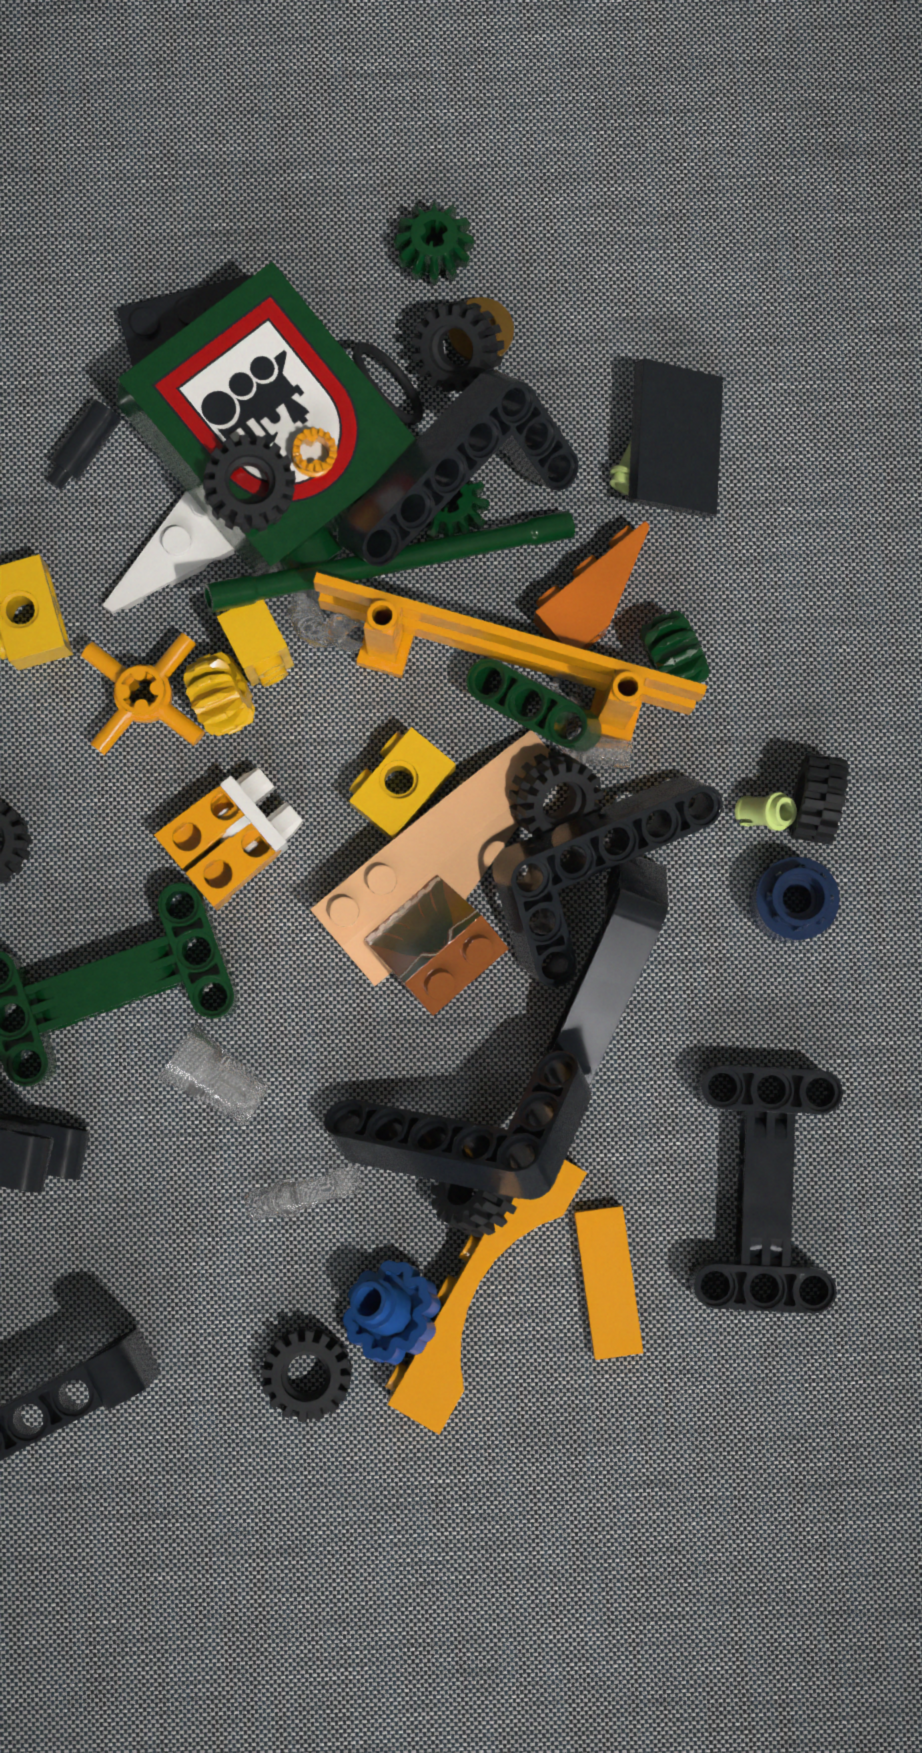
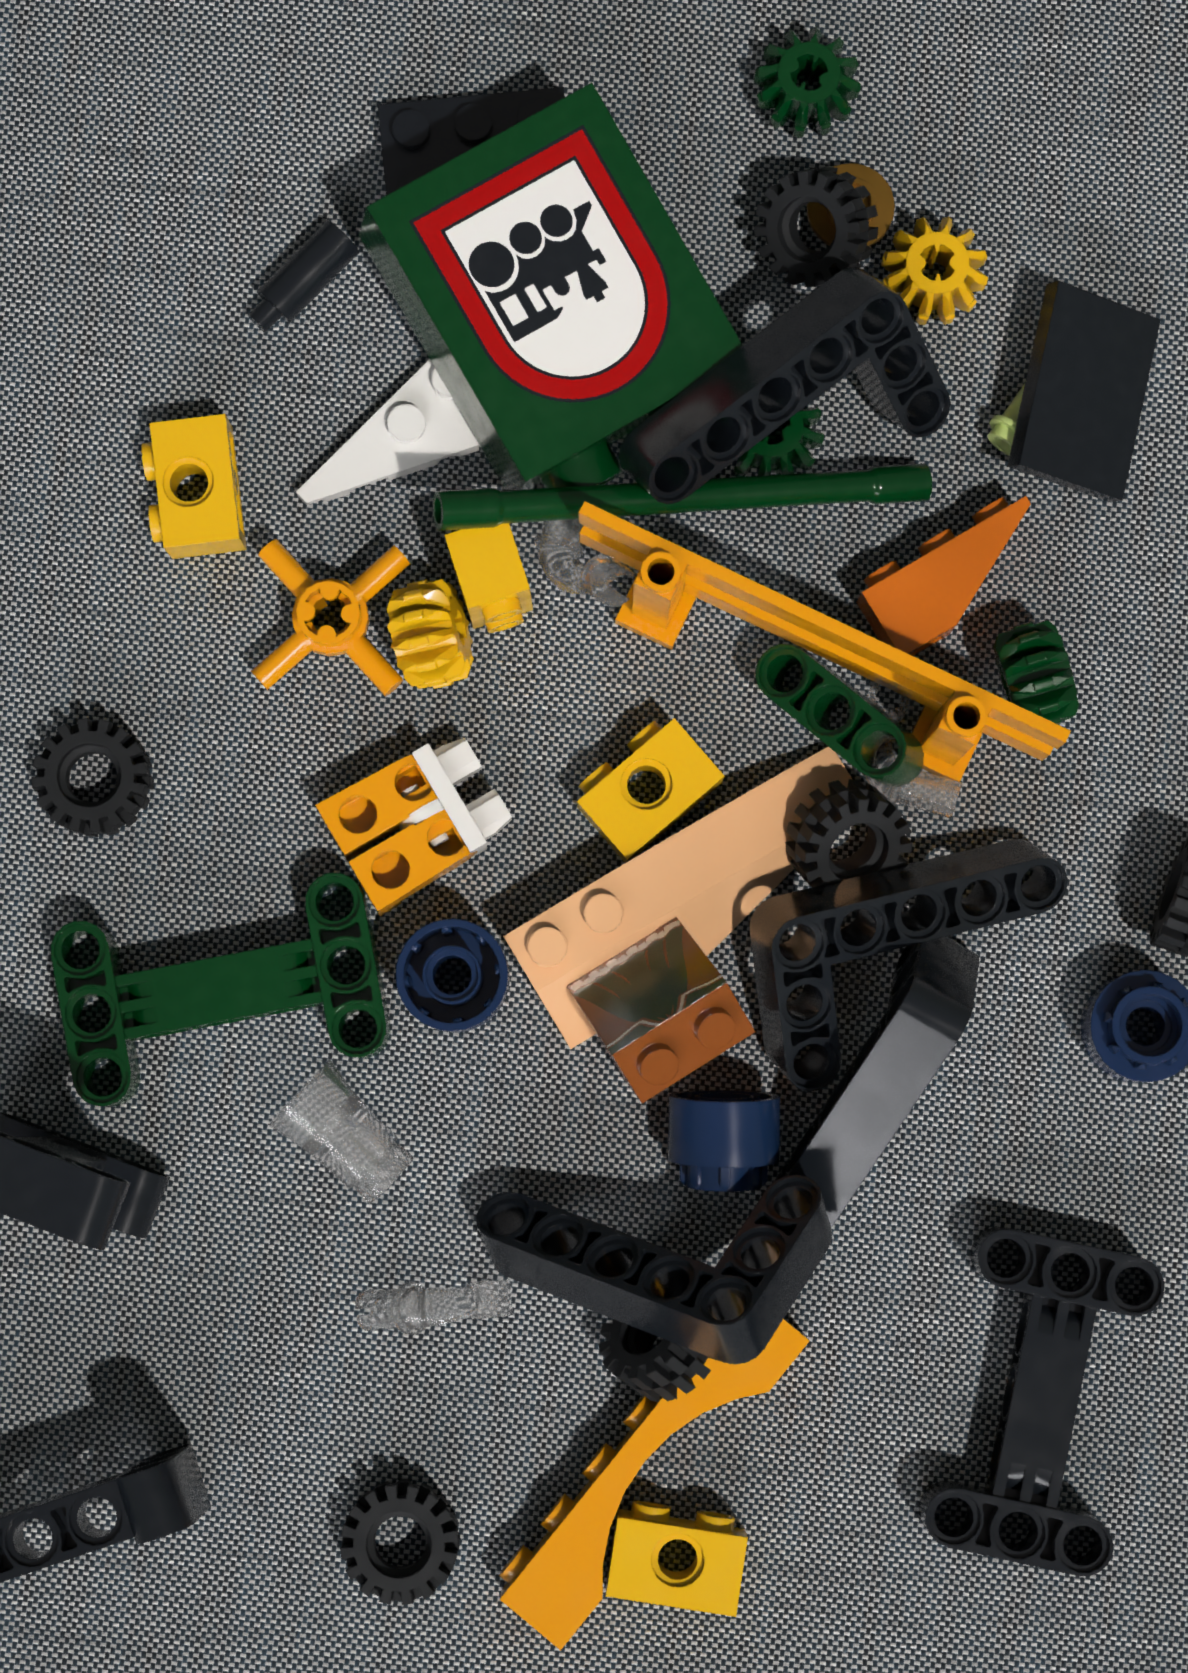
camera: 20 degrees right, 0 degrees up
(251, 940) = (418, 968): none -> dark blue piece
(258, 455) = (522, 331): black tyre -> none
(309, 438) = (603, 322): light orange bush -> none
(391, 1312) = (524, 1480): blue plant -> none
(400, 376) = (734, 250): black piece -> none
(499, 1033) = (724, 1138): none -> dark blue piece
(540, 1368) = (705, 1586): none -> yellow brick
(557, 350) = (943, 248): none -> yellow gear
(608, 1282) = (814, 1489): light orange tile -> none
(773, 811) = (1131, 905): yellowish green pin -> none

